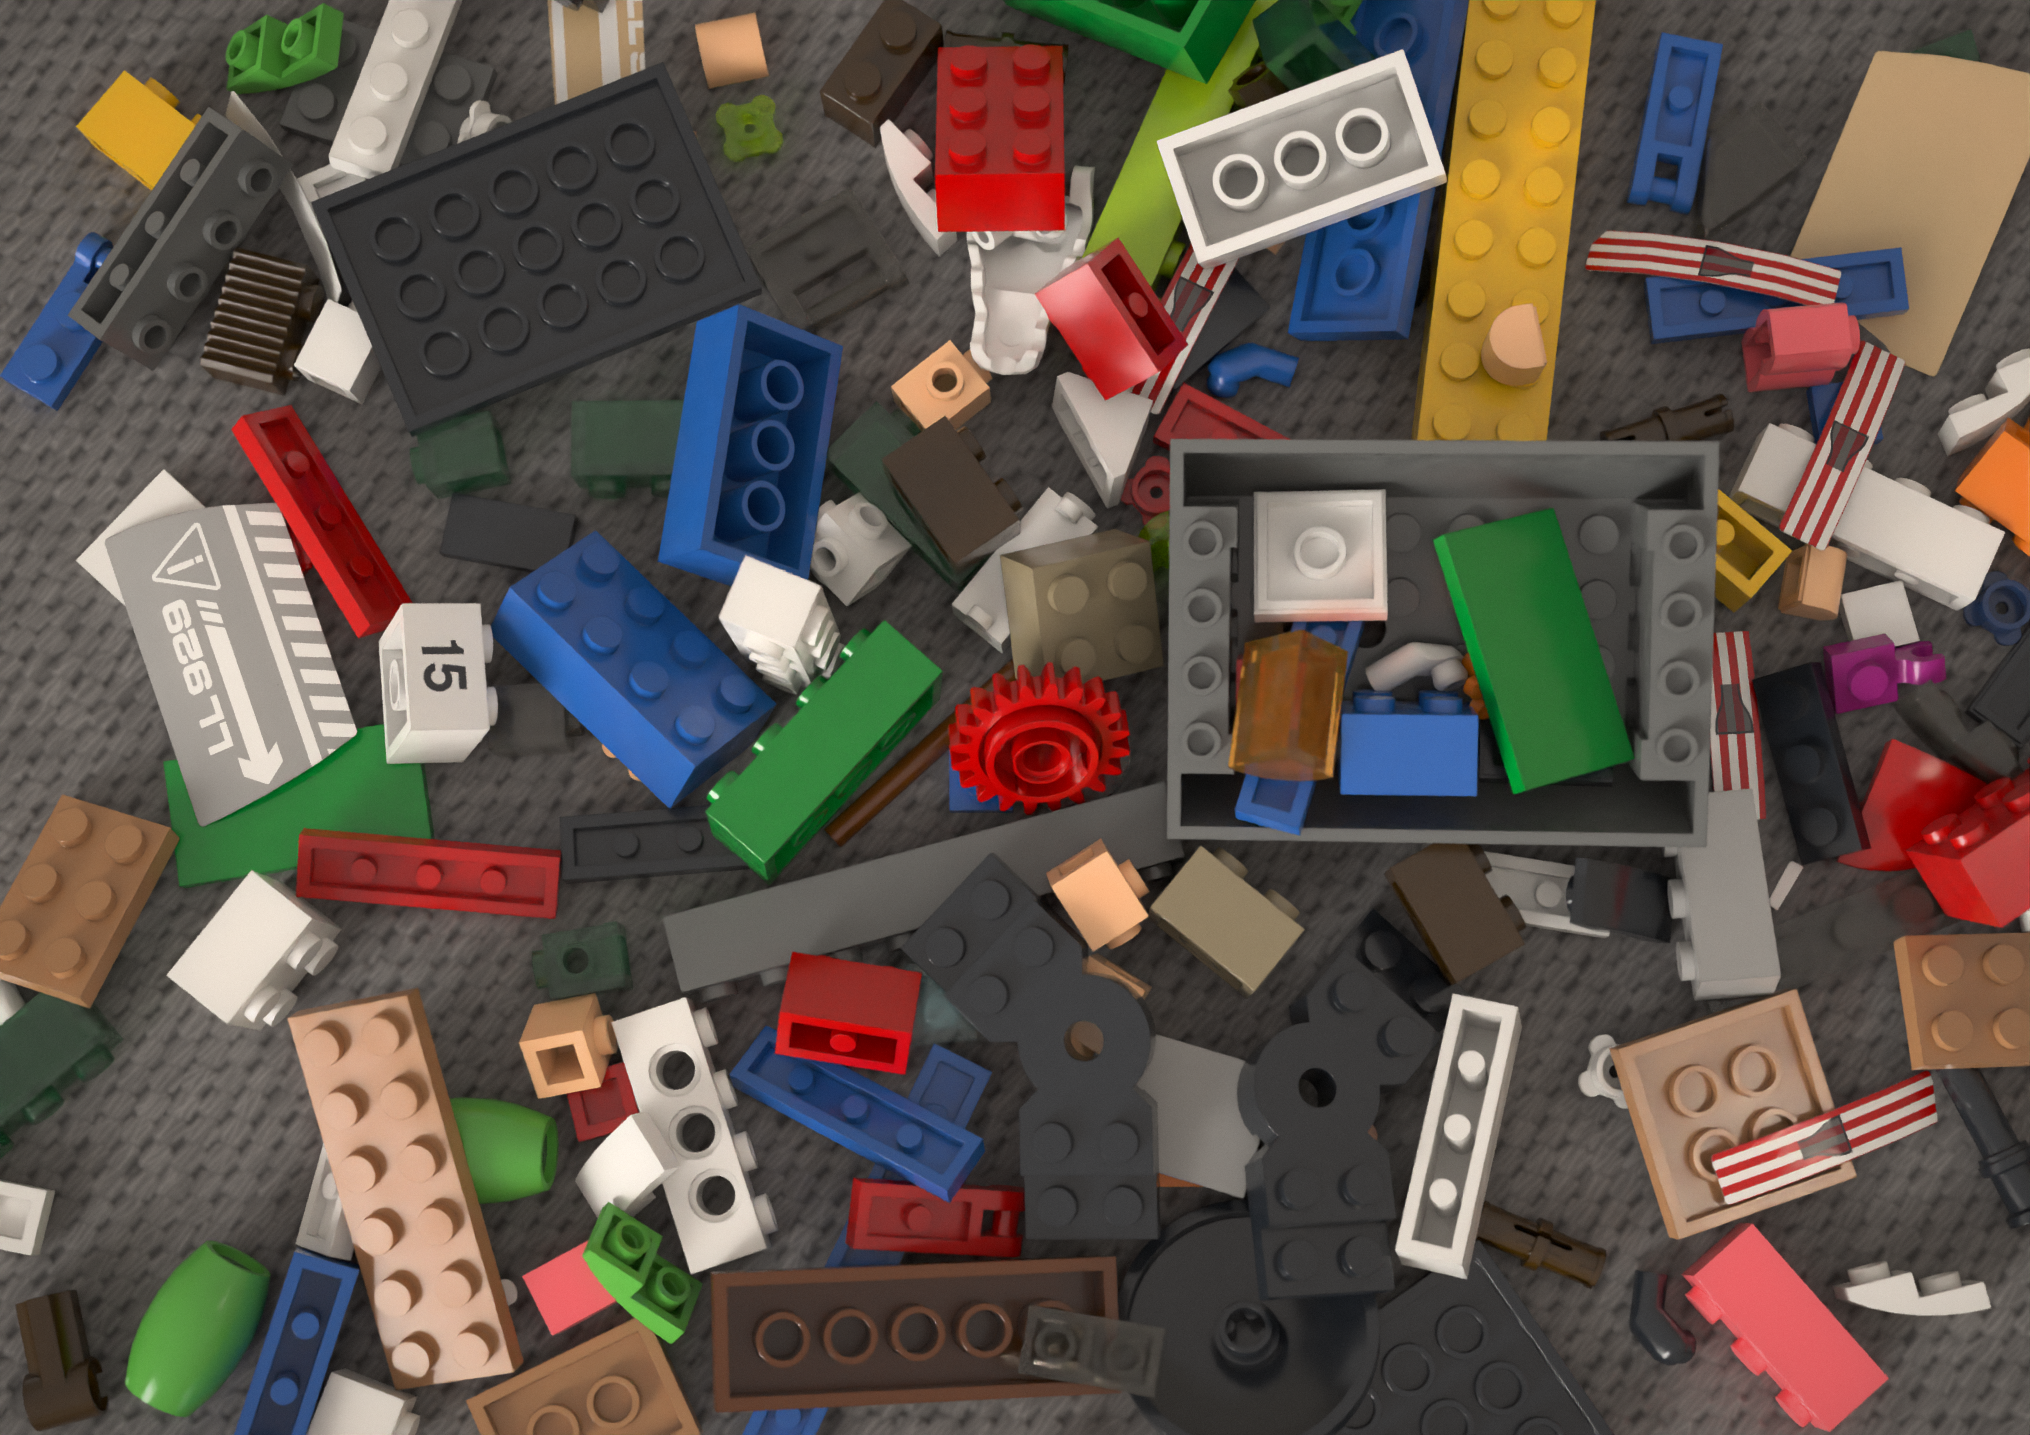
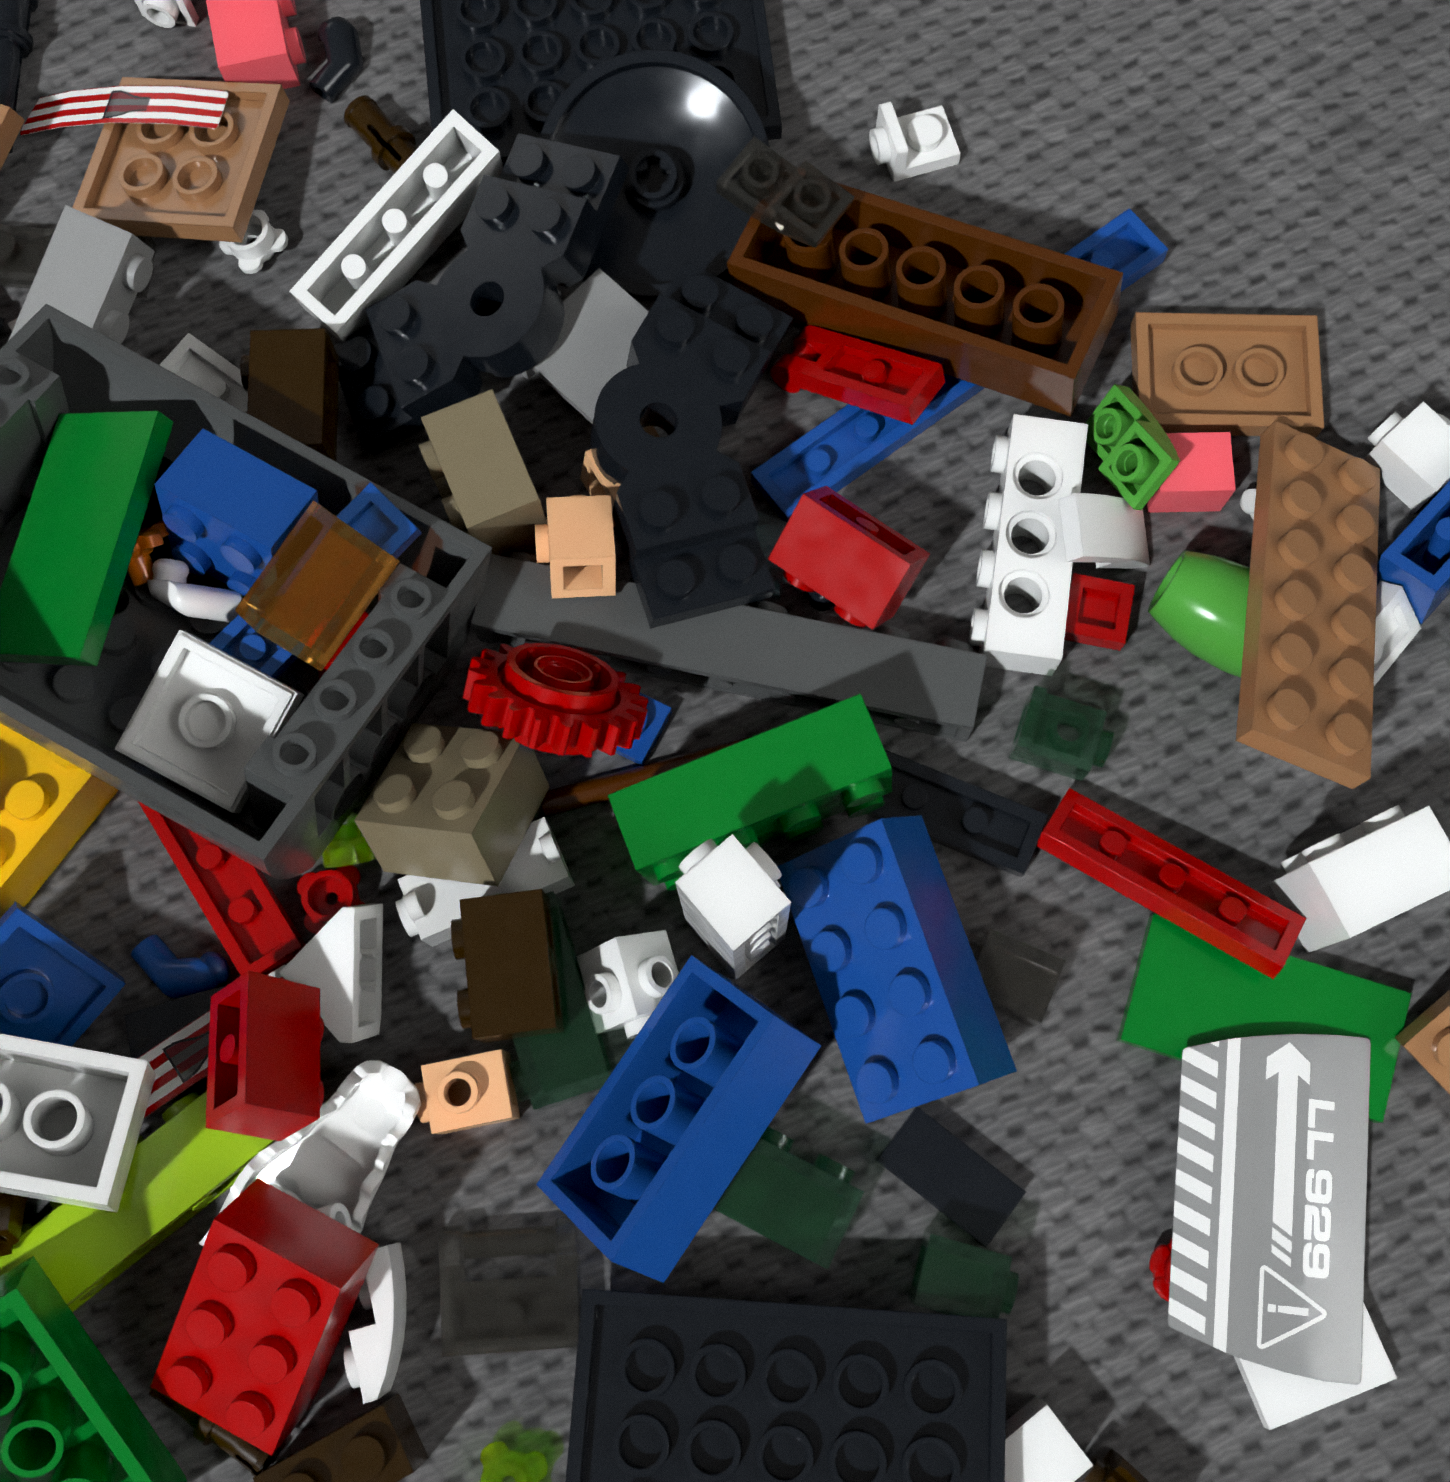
camera: 155 degrees left, 5 degrees down
(322, 518) = (1128, 1289): red plate -> none
(436, 682) = (1089, 1043): white brick -> none
(568, 1045) = (1109, 662): light nougat brick -> none
(860, 1116) = (880, 476): blue plate -> none
(1619, 900) = (167, 342): black slope -> none

